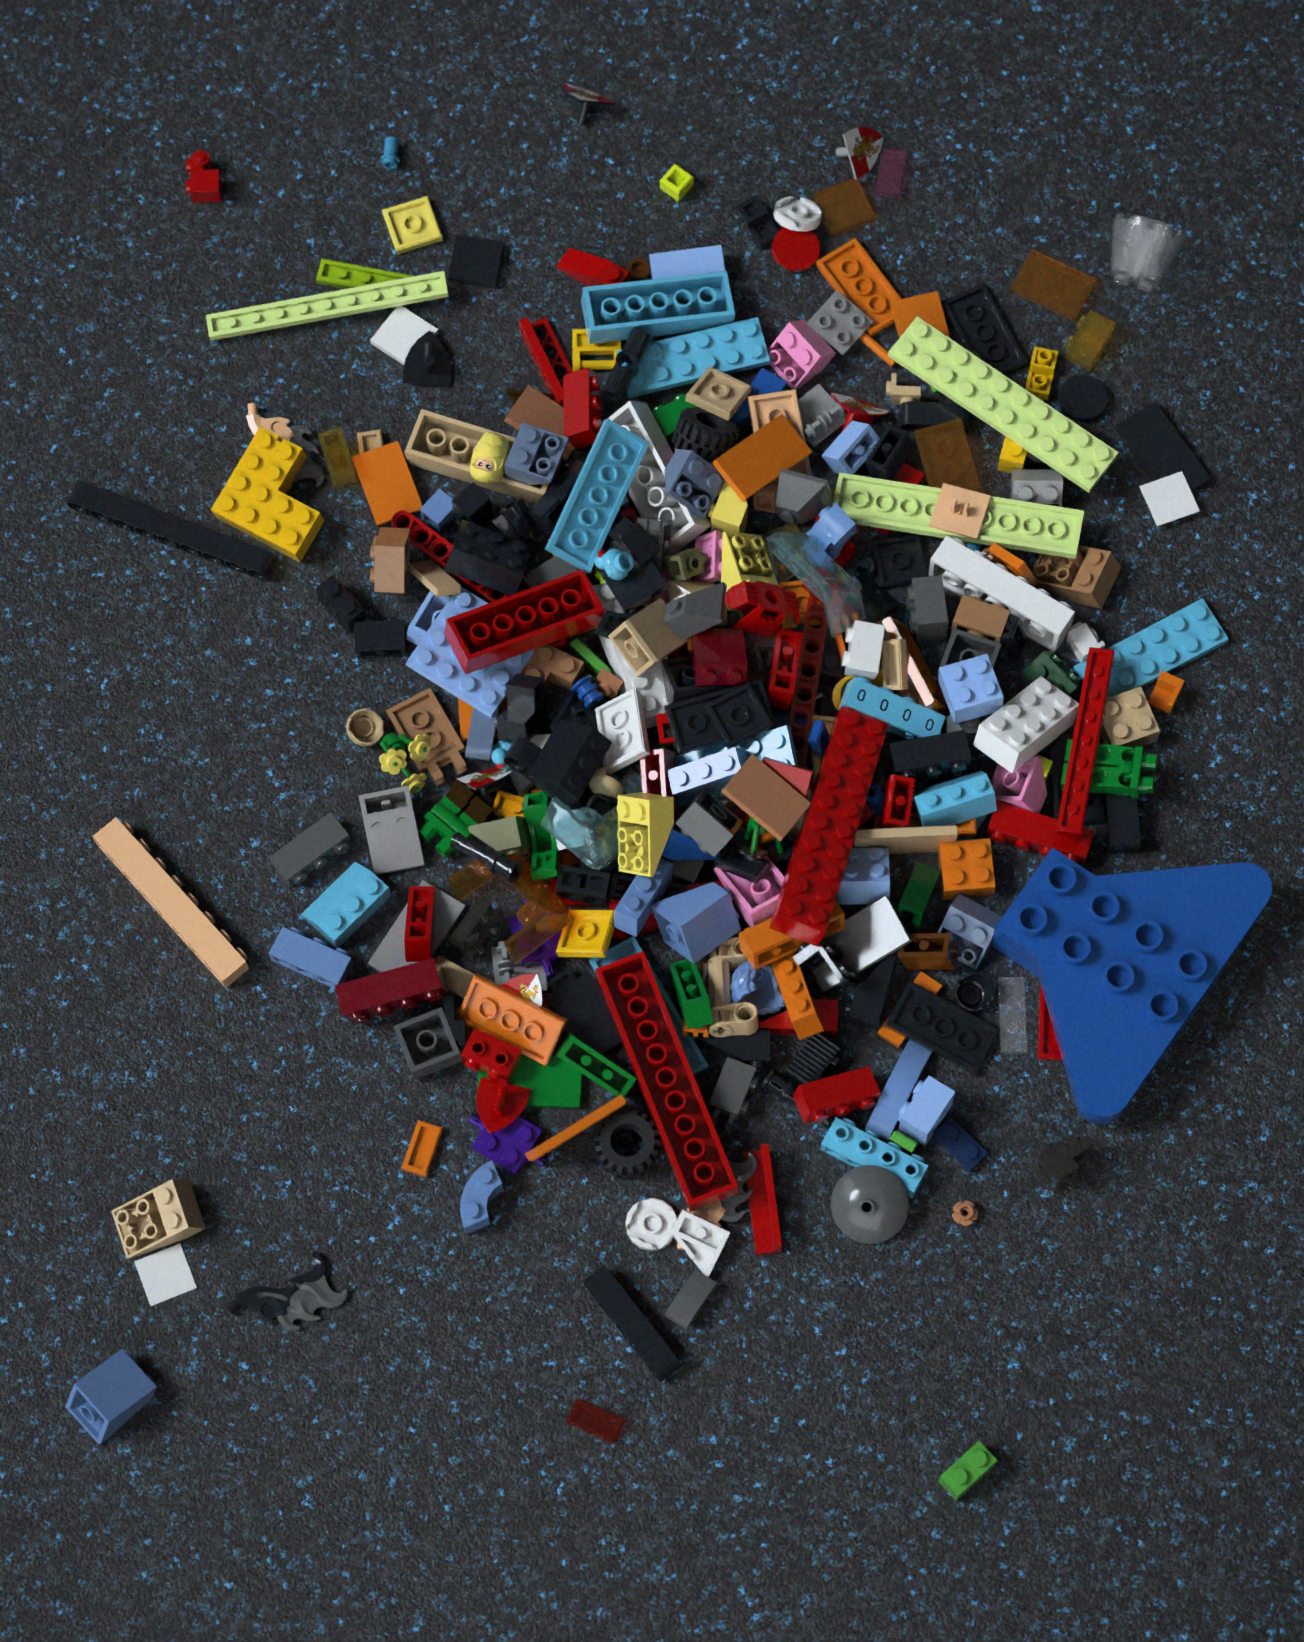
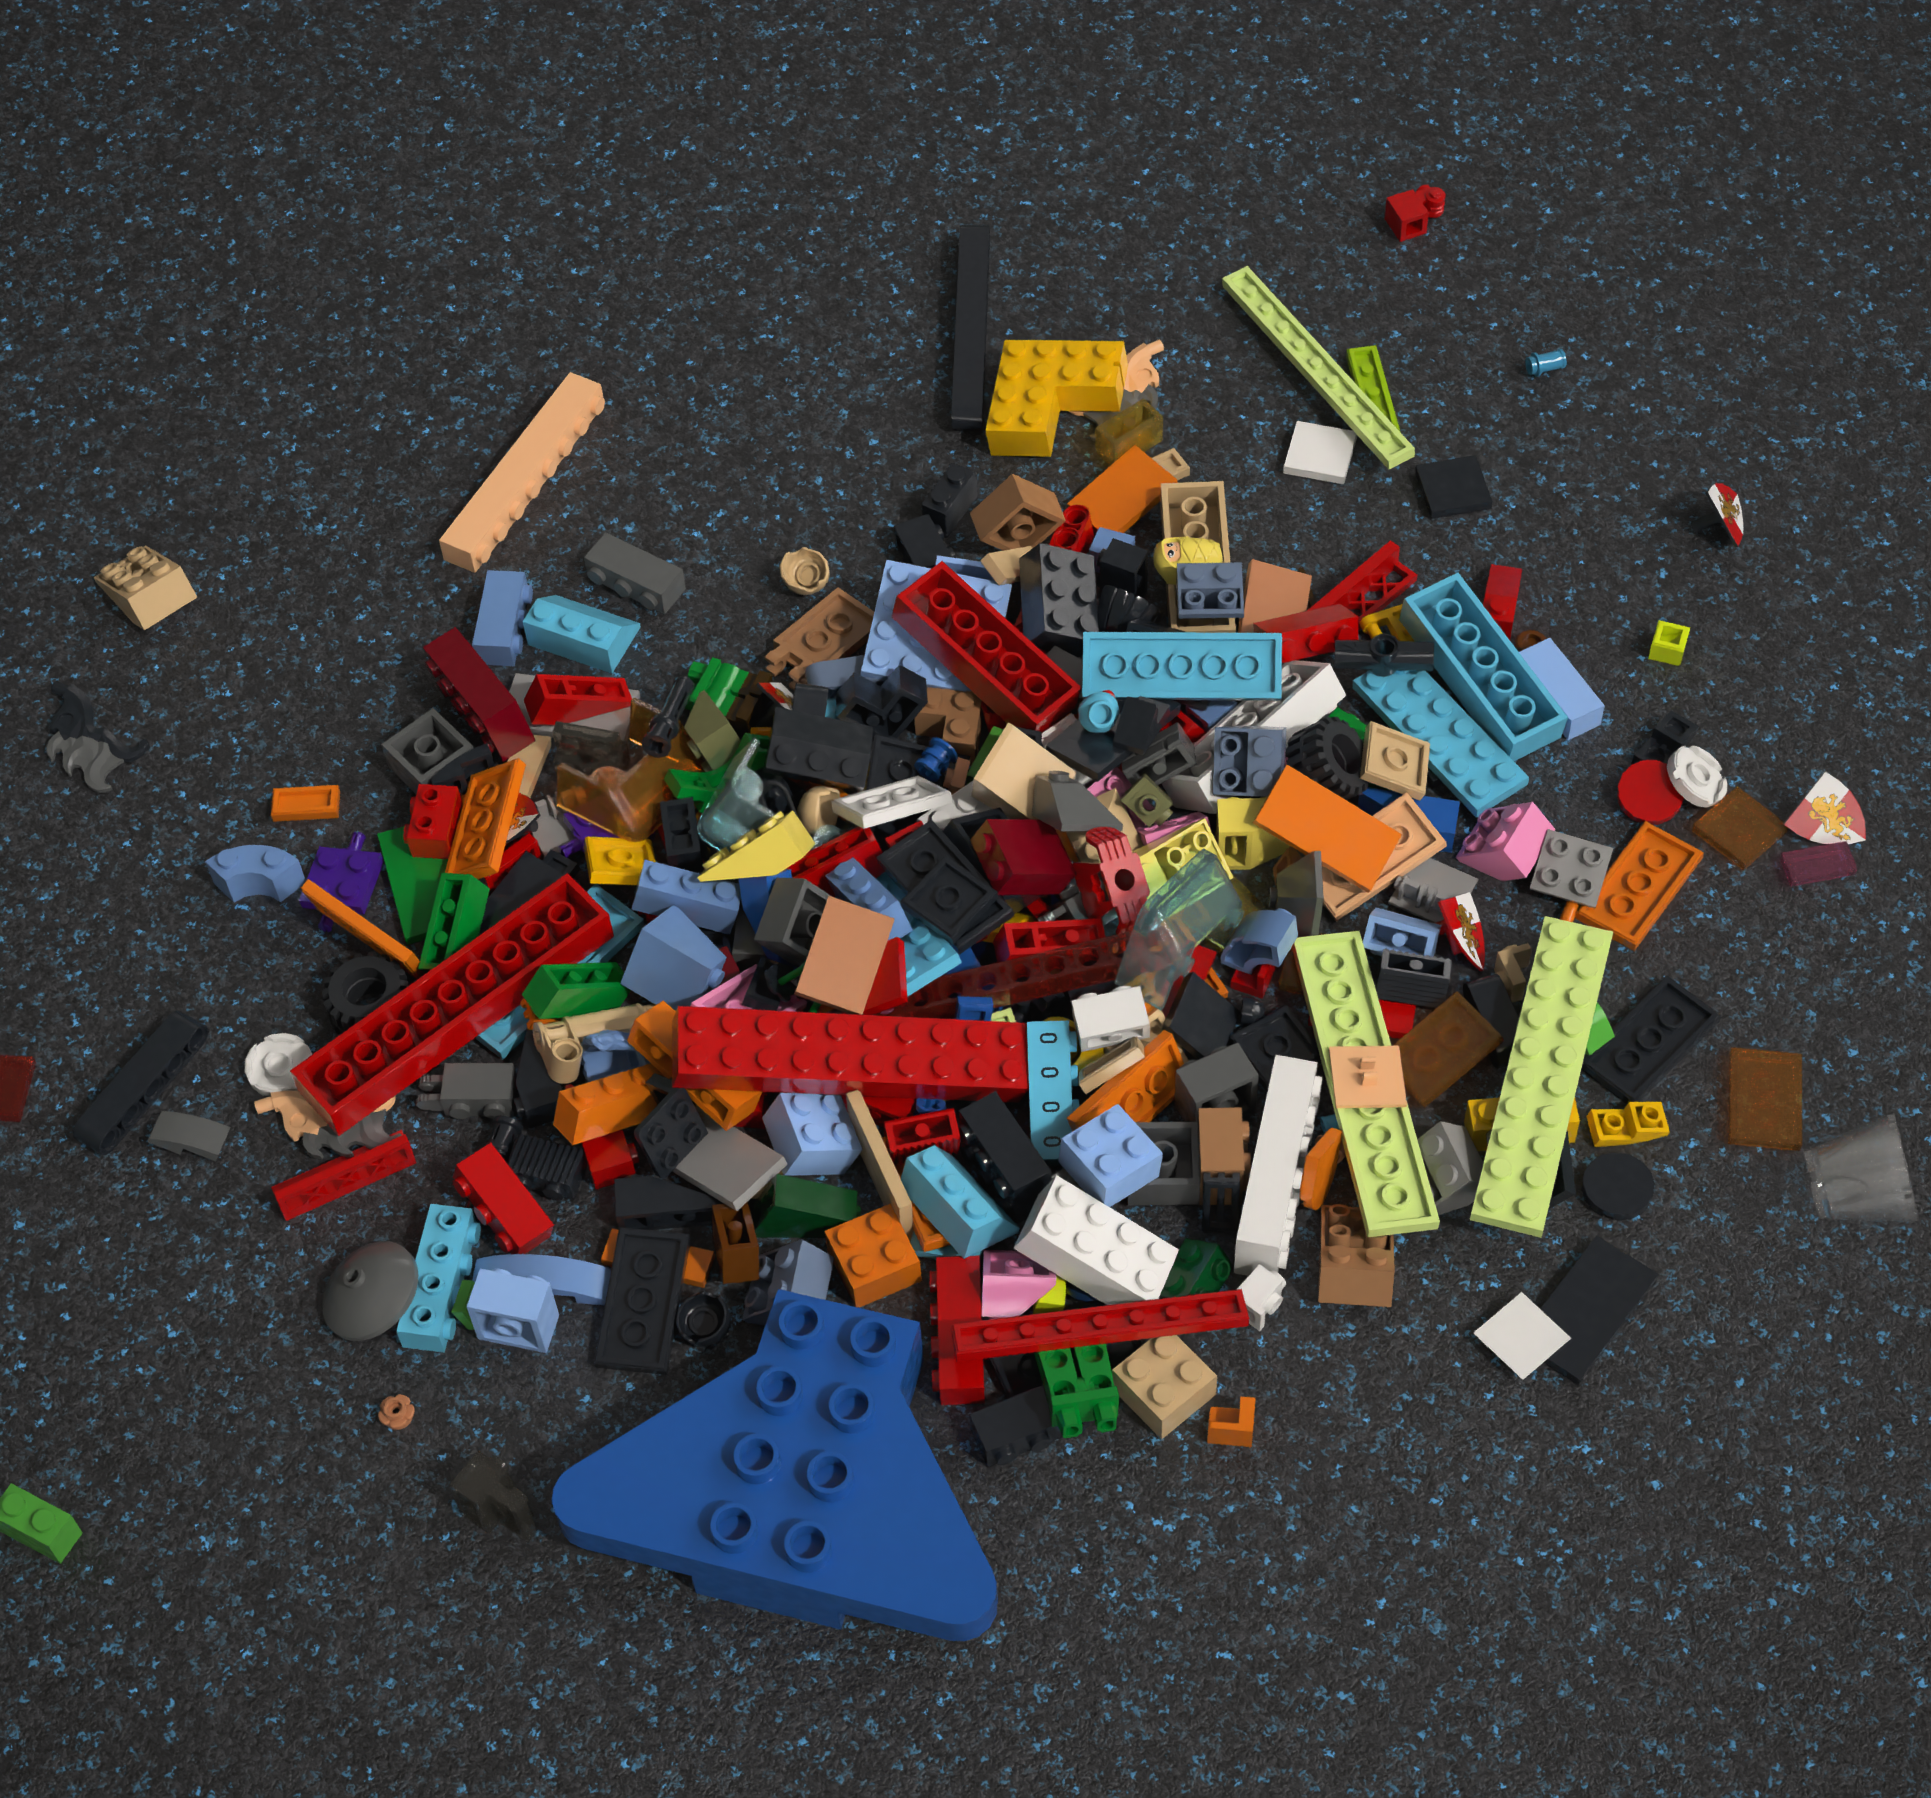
camera: 70 degrees right, 15 degrees down
(165, 1274) = (85, 618): white sticker -> none
(391, 830) = (687, 631): light grey slope -> none
(395, 757) = (792, 617): light yellow plant -> none
(412, 225) = (1466, 414): light yellow tile -> none
(427, 363) = (1296, 483): black shield -> none
(500, 1103) = (378, 853): red shield -> none
(700, 1239) = (267, 1115): white wing -> none
(924, 306) = (1633, 959): orange tile -> none
(959, 1144) = (490, 1376): dark blue plate -> none
(1012, 1015) = (674, 1384): clear tile -> none
(1090, 340) = (1705, 1163): clear yellow brick -> none
(1162, 647) = (1293, 1396): medium azure plate -> none

